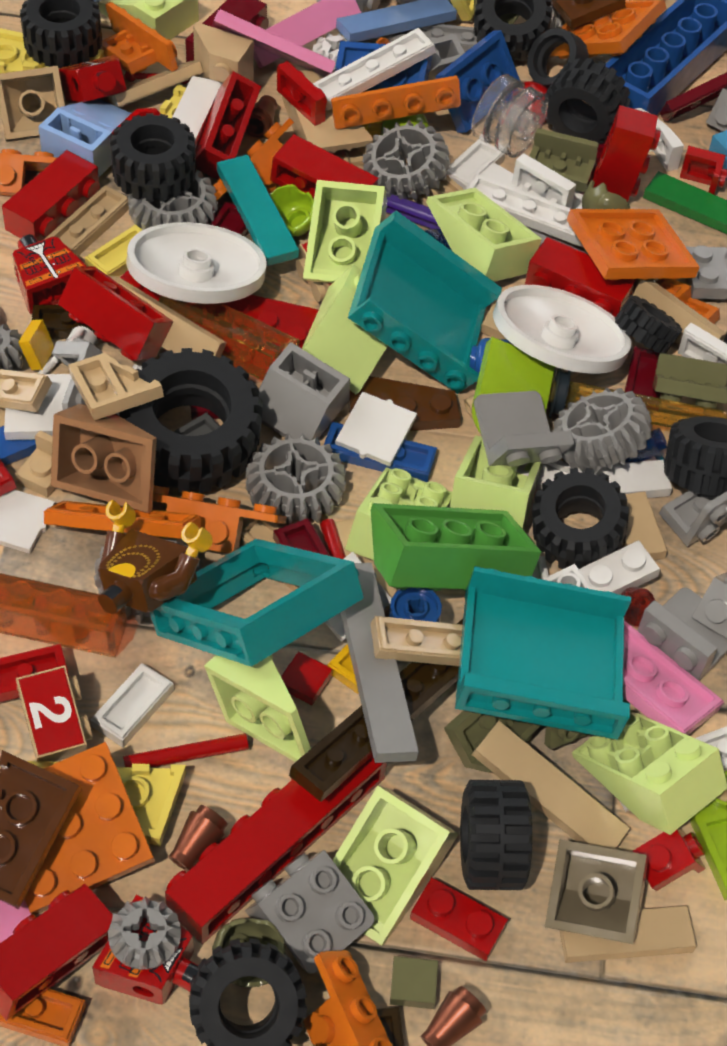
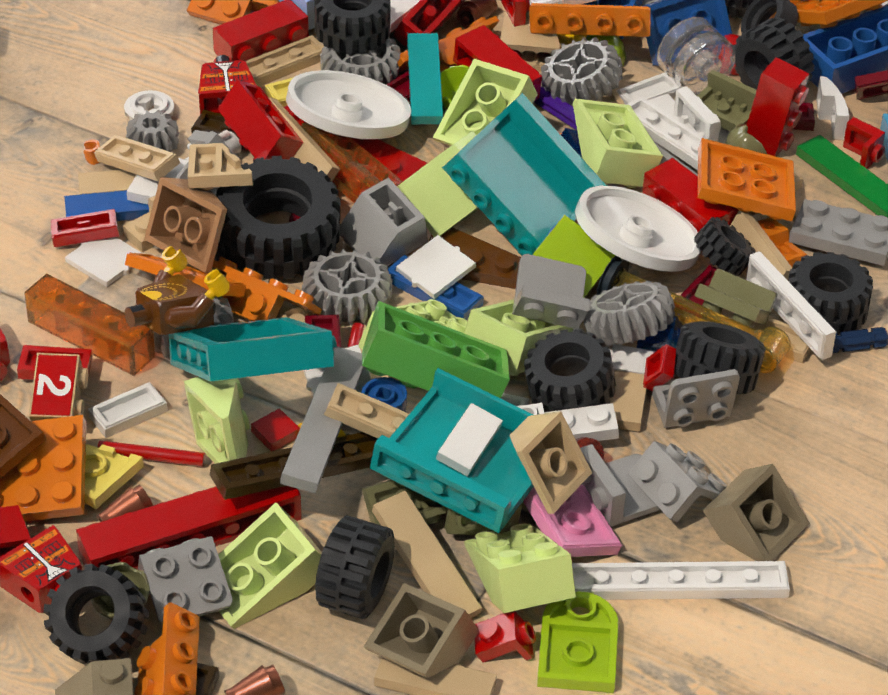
camera: 25 degrees right, 10 degrees down
(36, 344) = (181, 134): yellow tile -> none
(160, 945) = (48, 558): light grey gear -> none
(413, 982) = (241, 656): olive tile -> none
(458, 919) = (303, 628): red plate -> none
(542, 640) = (469, 439): none -> white tile
(633, 635) = (550, 457): none -> tan slope
(661, 483) = (659, 367): none -> red tile

